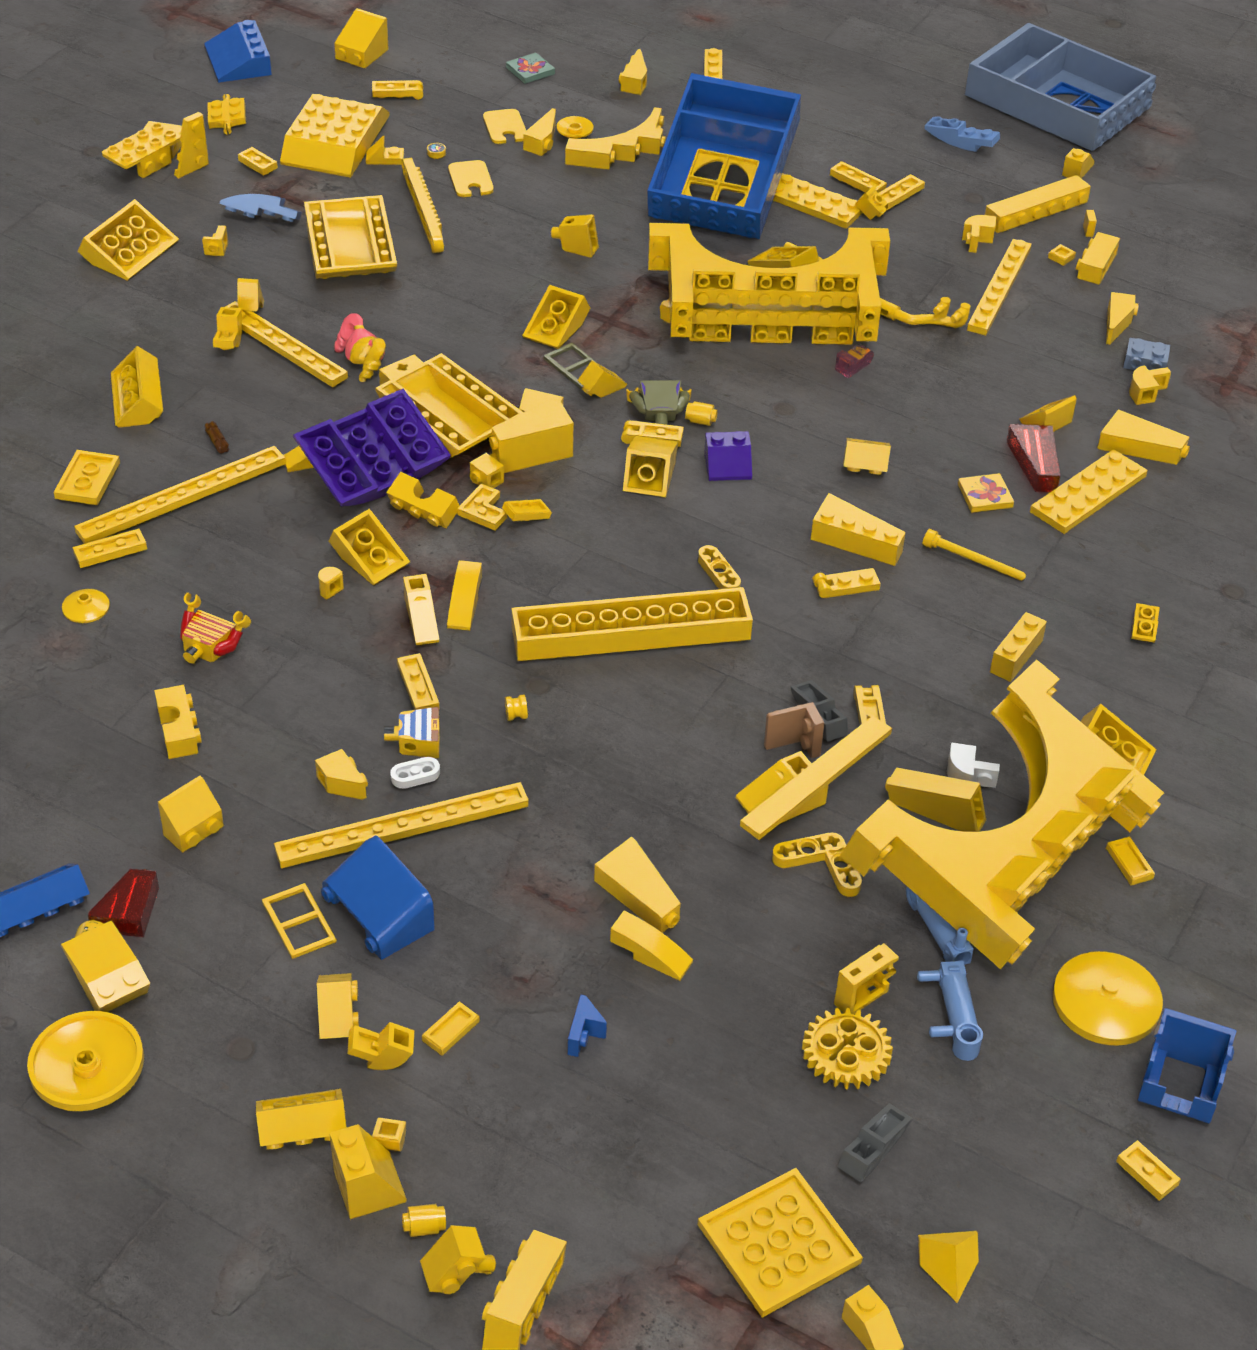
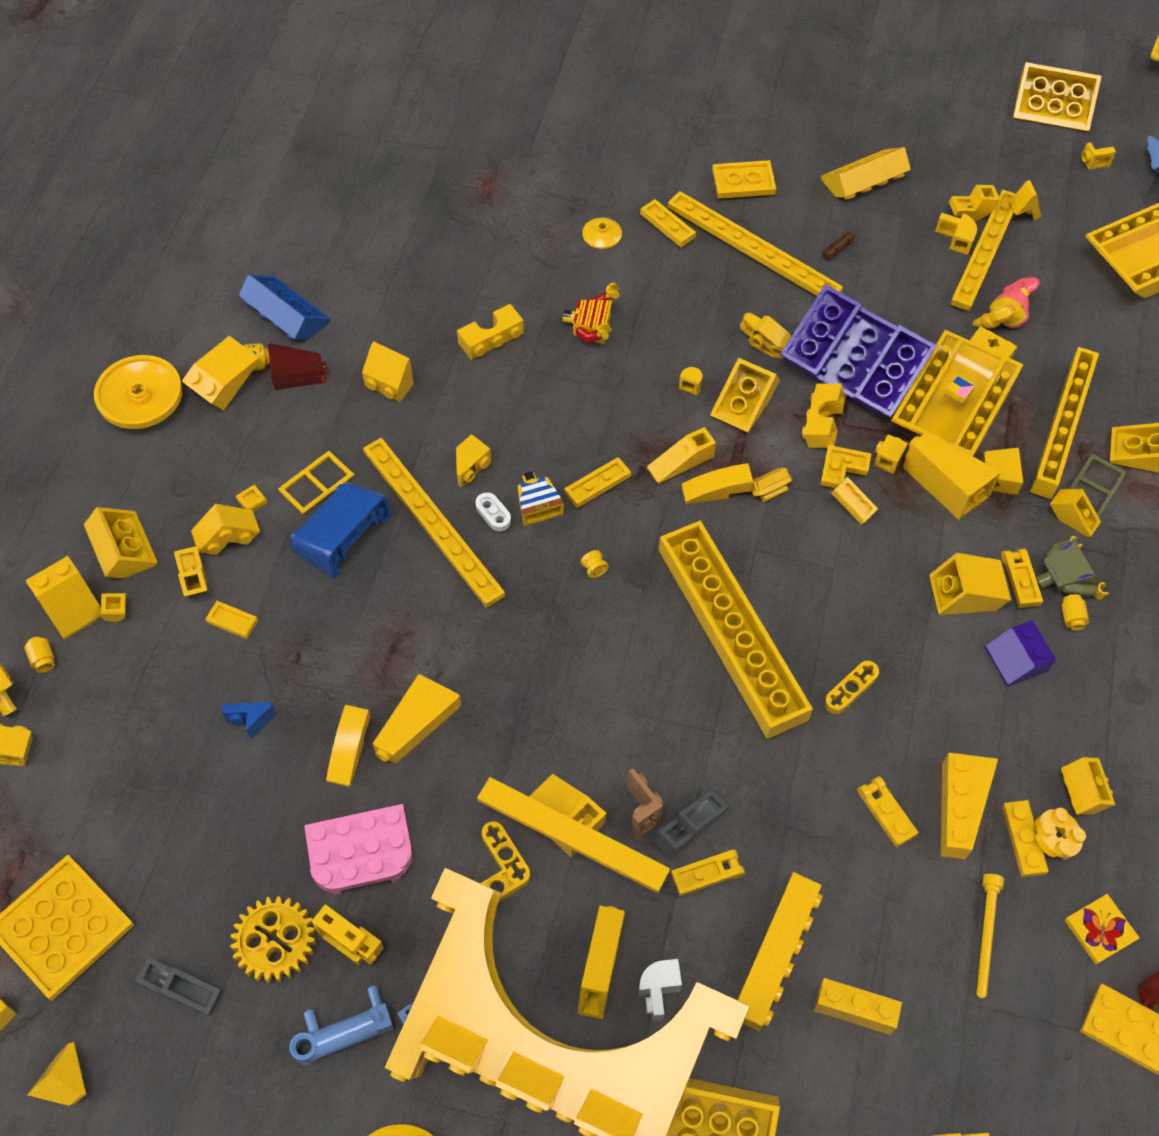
camera: 75 degrees right, 15 degrees up
(253, 350) = (961, 230): none -> yellow brick
(294, 983) = (251, 498): none -> yellow tile
(305, 513) = (765, 334): none -> yellow hinge
(450, 396) = (960, 389): none -> tile
(480, 552) = (771, 484): none -> yellow piece
(509, 354) = (1064, 423): none -> yellow brick
(769, 963) = (359, 849): none -> bright pink plate
(897, 510) = (1022, 835): none -> yellow plate
(900, 485) = (1047, 827): none -> yellow plate
(948, 679) = (777, 949): none -> yellow brick

